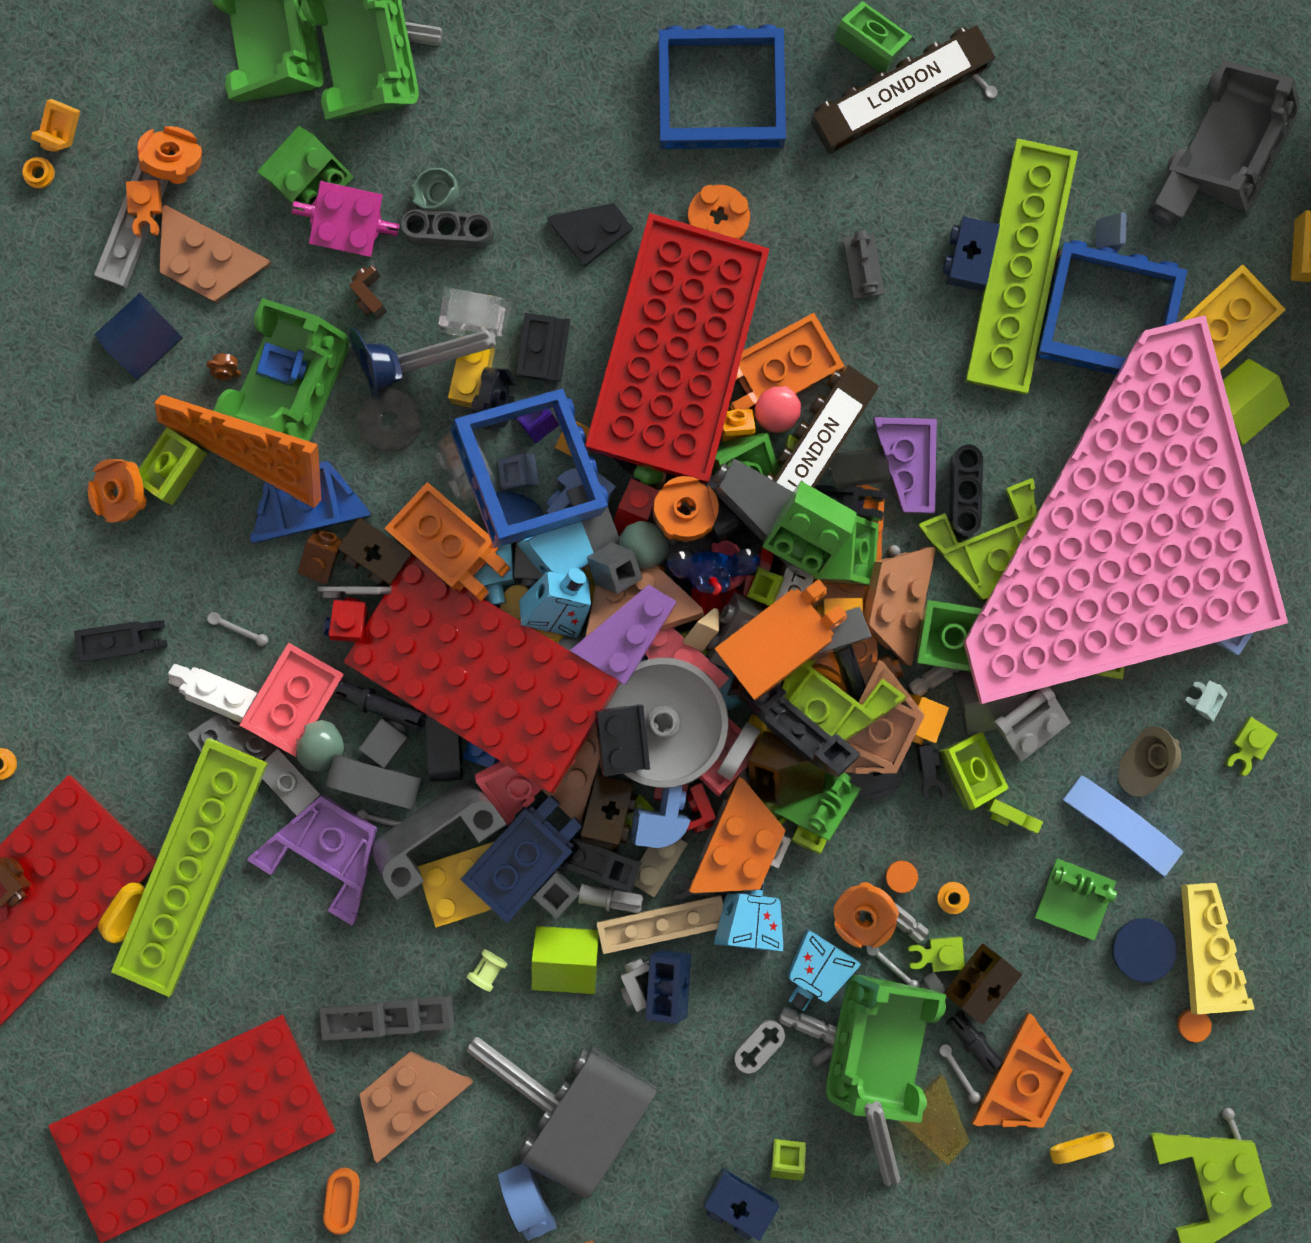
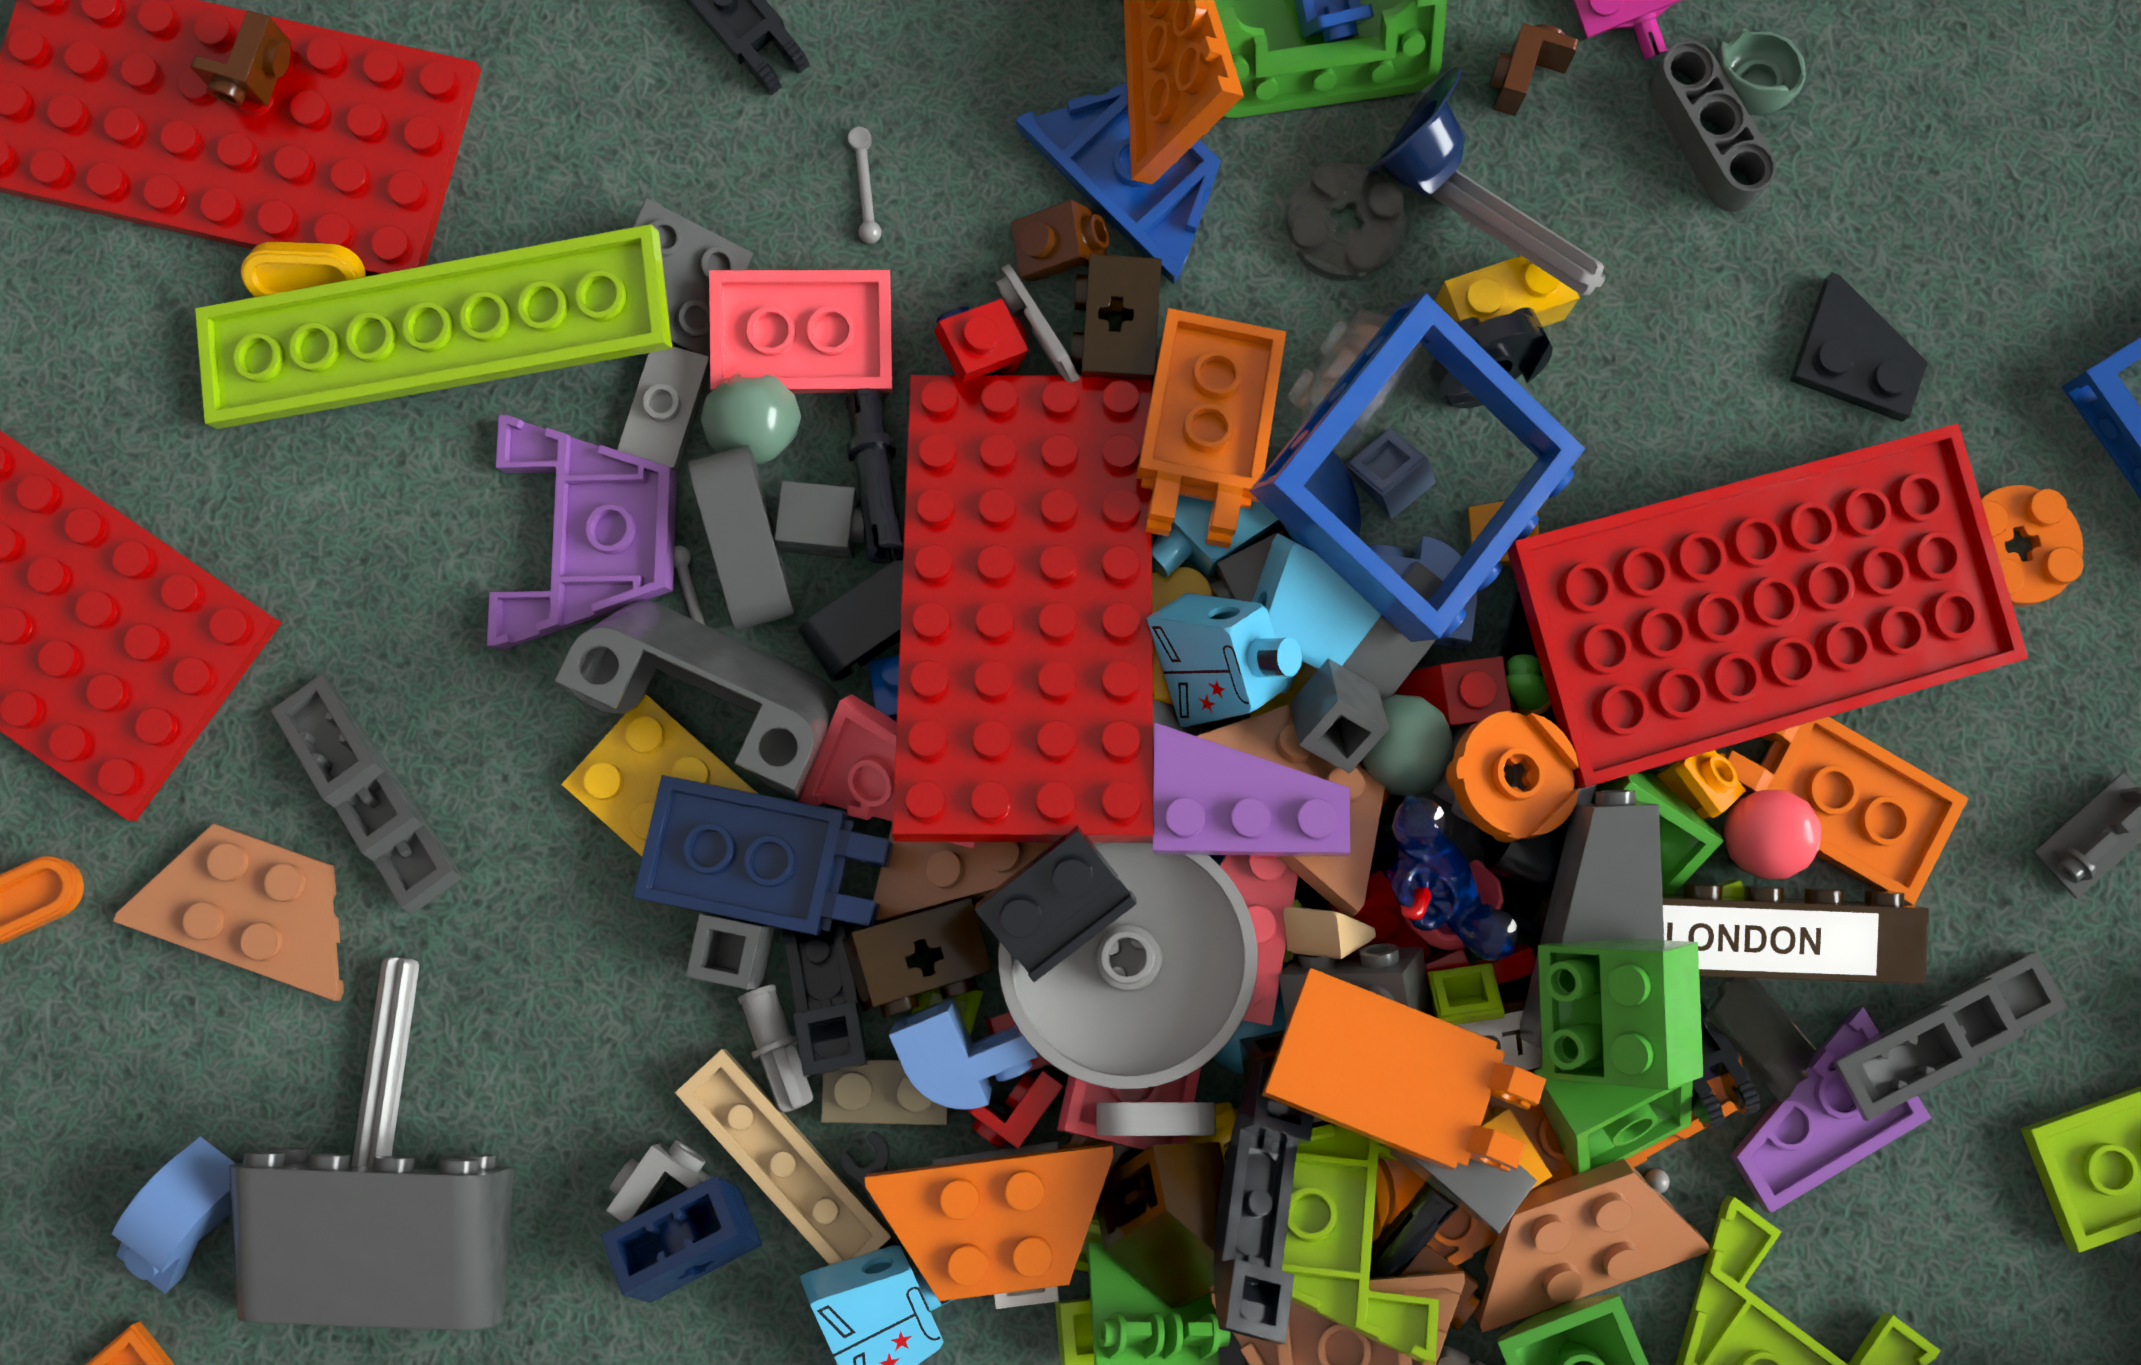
camera: 60 degrees right, 5 degrees down
(212, 691) = (739, 200): white hinge -> none
(474, 312) = (1612, 225): clear slope -> none
(487, 970) = (537, 912): yellowish green bush -> none
(538, 424) = (1491, 454): dark purple slope -> none
(543, 347) = (1619, 390): black plate -> none
(565, 960) = (629, 1032): lime slope -> none
(907, 388) = (1949, 1035): none -> dark grey slope
(972, 477) = (1870, 1245): black beam -> none

